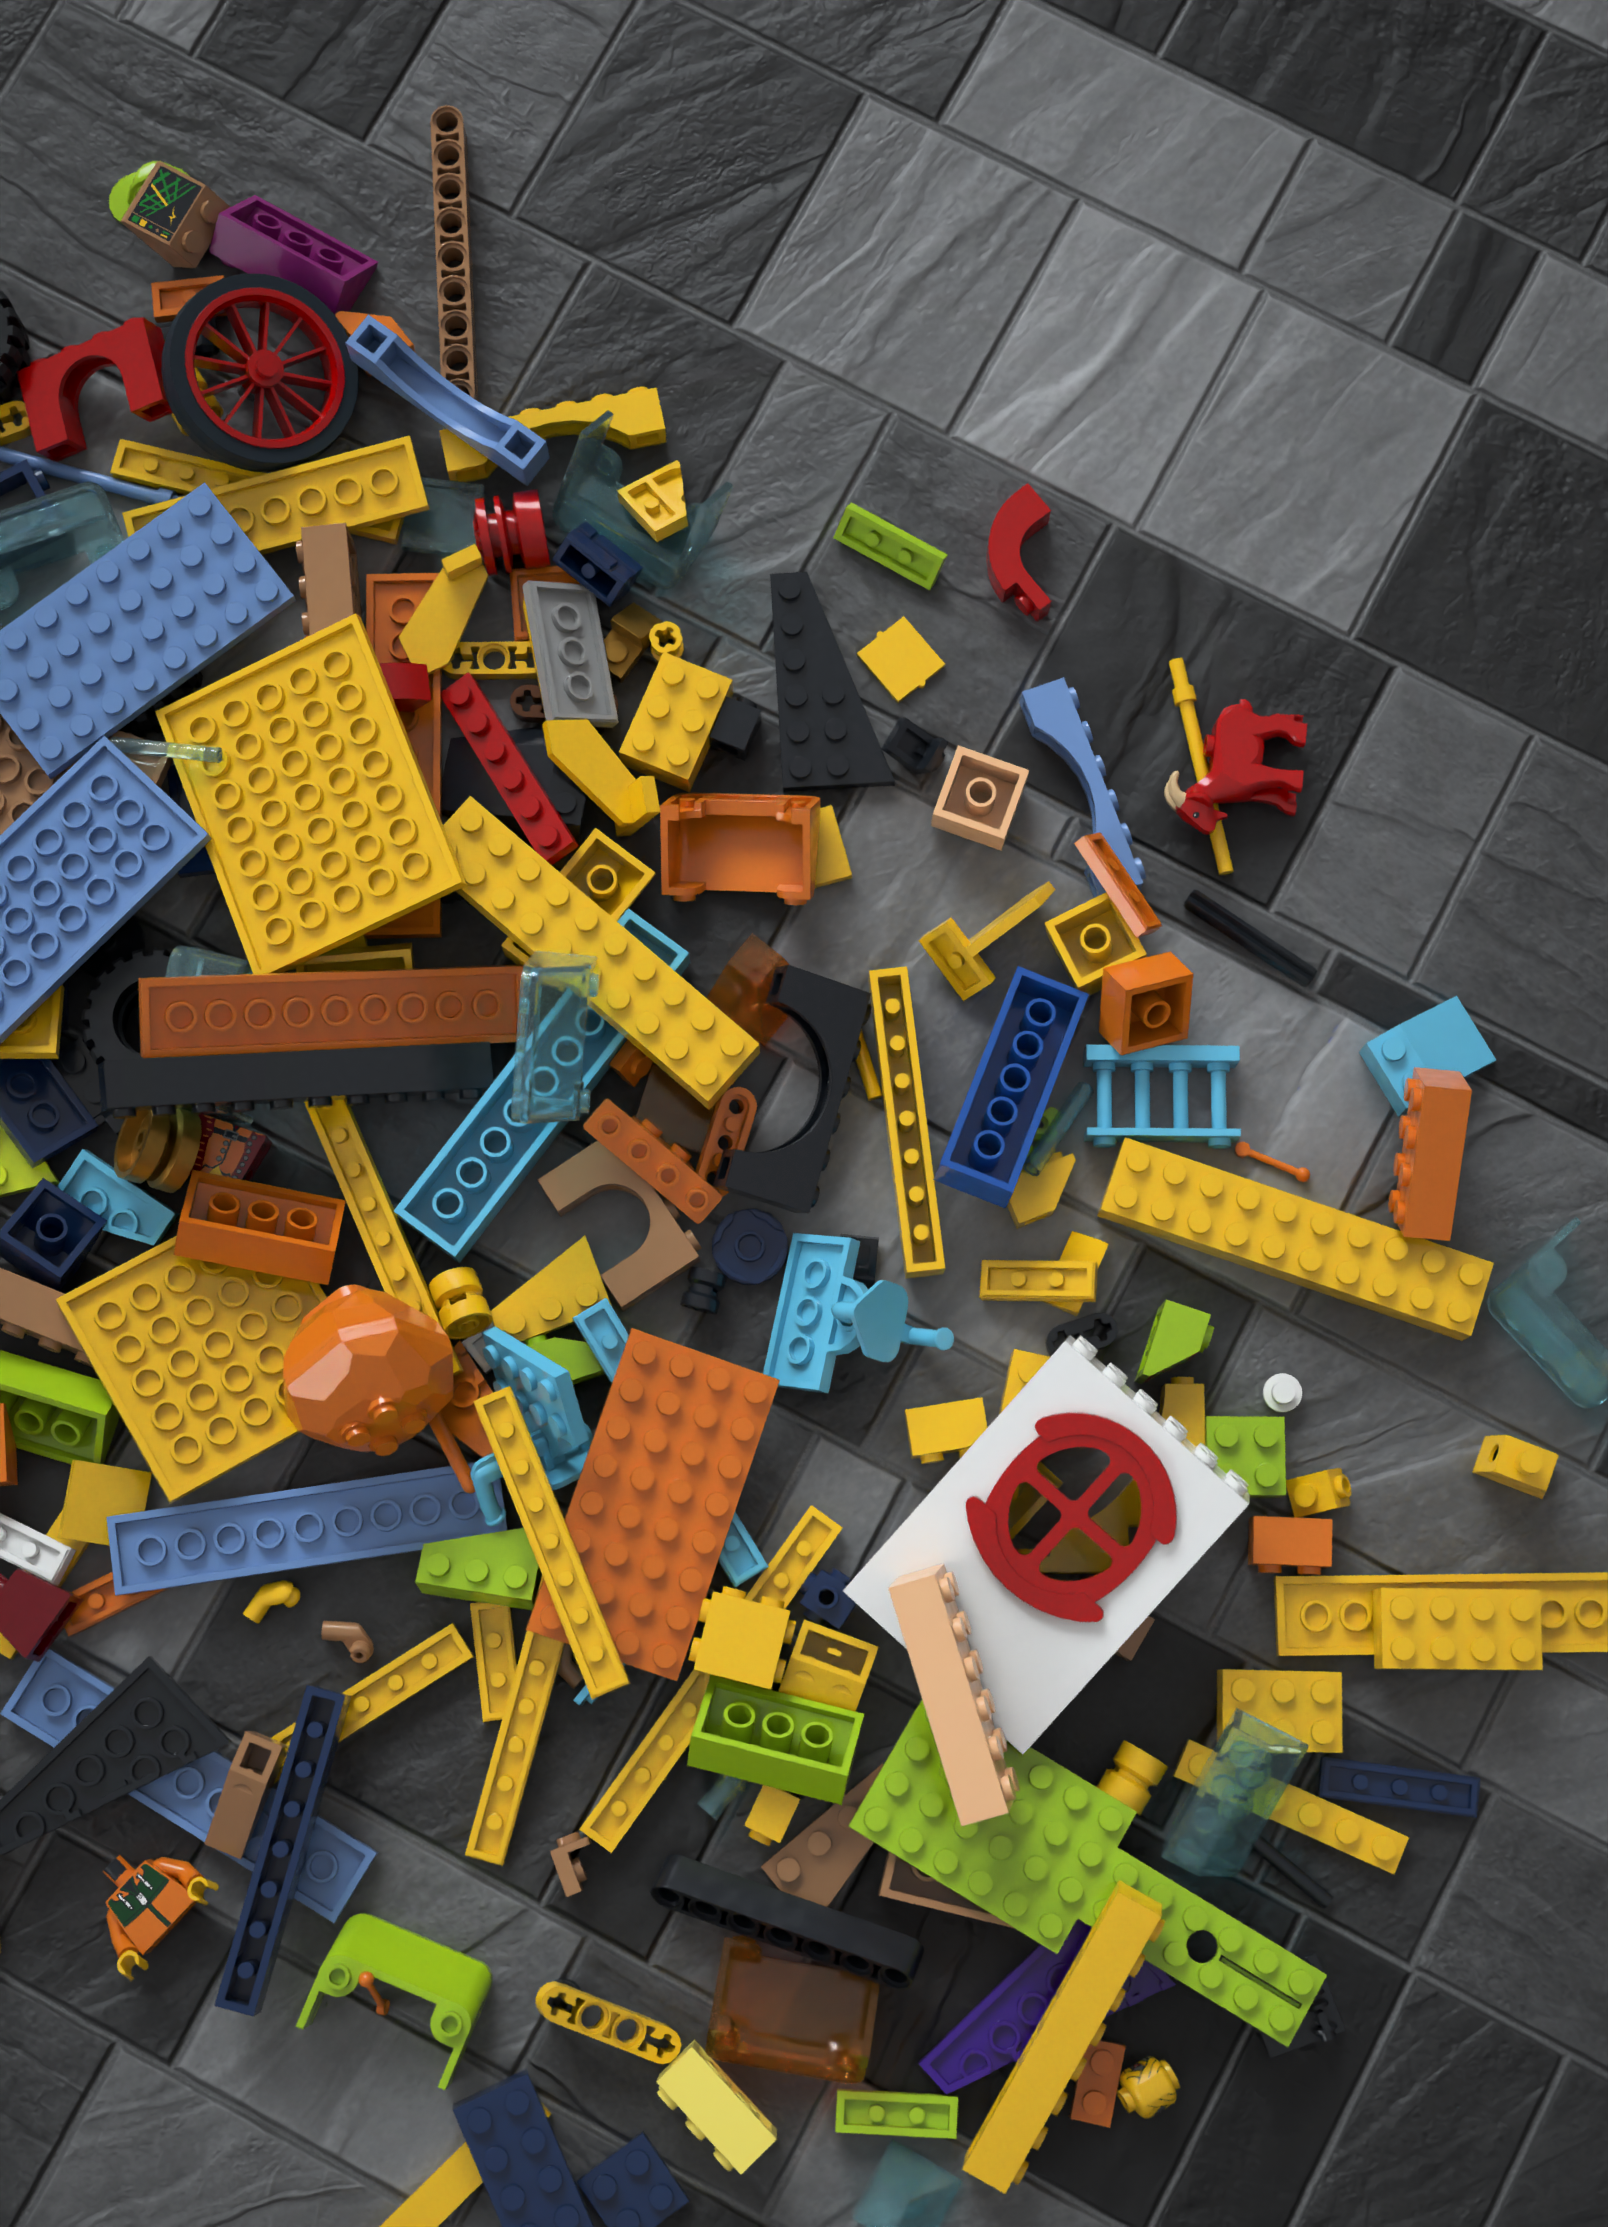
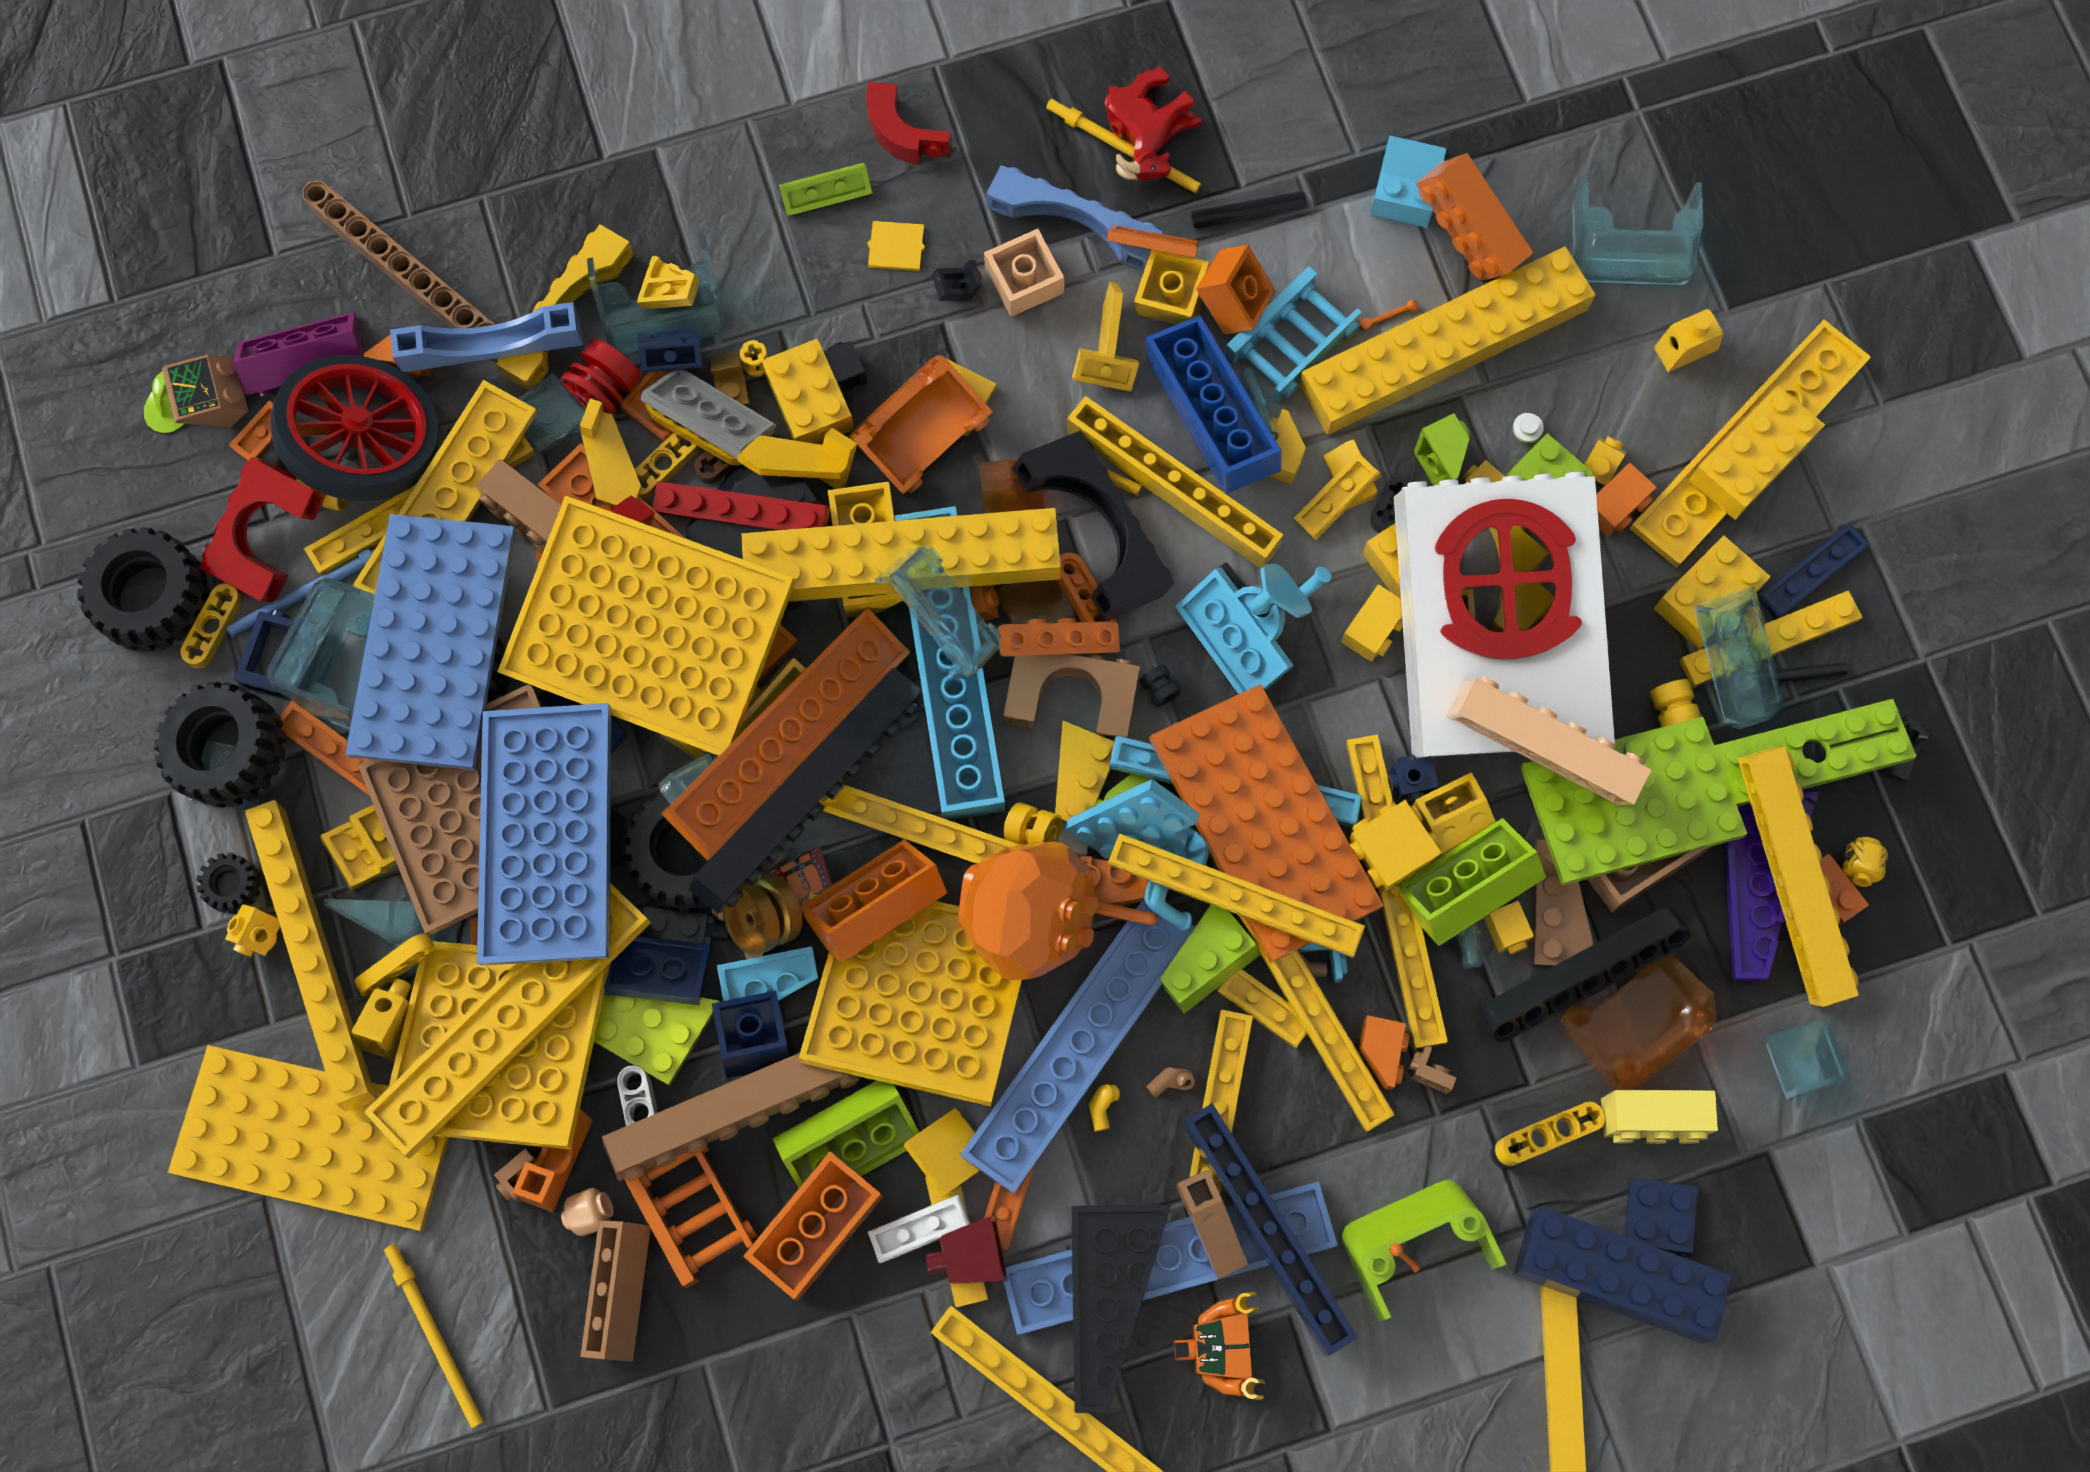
camera: 45 degrees left, 5 degrees down
(168, 749) = (531, 682): clear light blue bar -> none
(550, 1798) = (1381, 1049): none -> orange slope
(739, 1250) = (1158, 638): dark blue tile -> none
(820, 713) = (882, 316): black wing -> none
(896, 2113) = (1753, 1018): lime plate -> none

